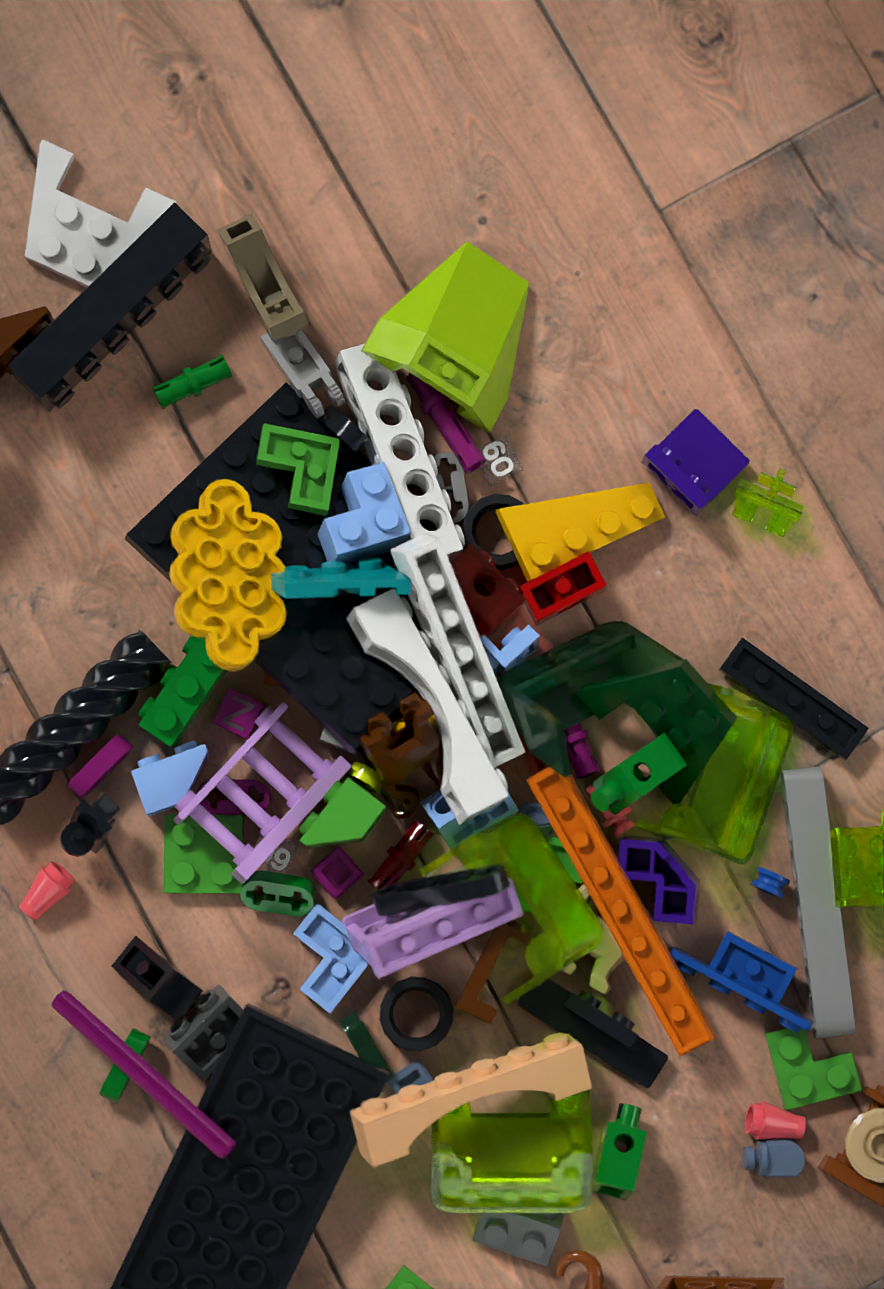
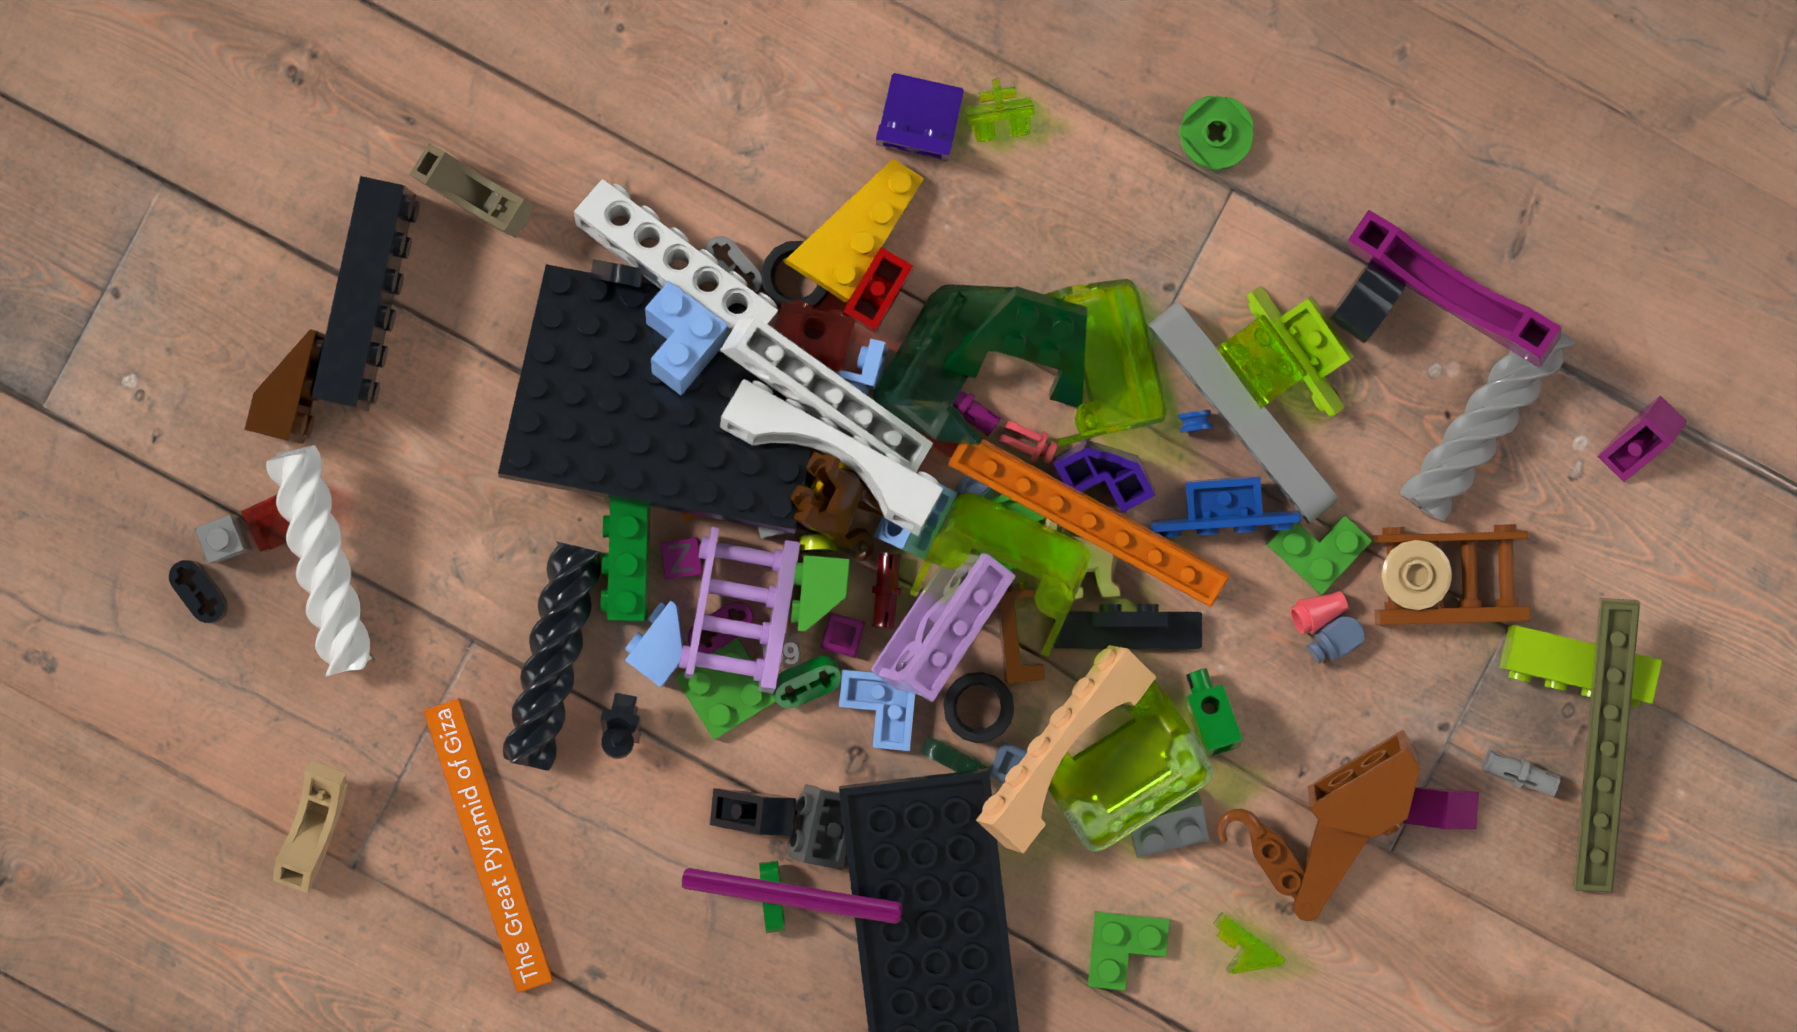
camera: 30 degrees left, 5 degrees up
(47, 889) = (619, 795): coral cone -> none
(73, 235) = (294, 253): white wing -> none
(100, 766) = (597, 671): magenta beam -> none
(192, 381) = (469, 312): green pin -> none
(227, 574) = (602, 453): yellow plate -> none
(303, 369) = (553, 245): light grey hinge -> none
(309, 457) = (604, 315): bright green plate -> none
(358, 578) = (704, 392): teal wing -> none
(441, 889) = (936, 598): black beam -> none
(449, 424) = (683, 205): magenta pin -> none
(458, 332) = (660, 134): lime wedge -> none
(500, 460) = (758, 218): clear tile -> none
(627, 783) = (1030, 415): green torso -> none
(793, 698) = (1120, 260): black plate -> none

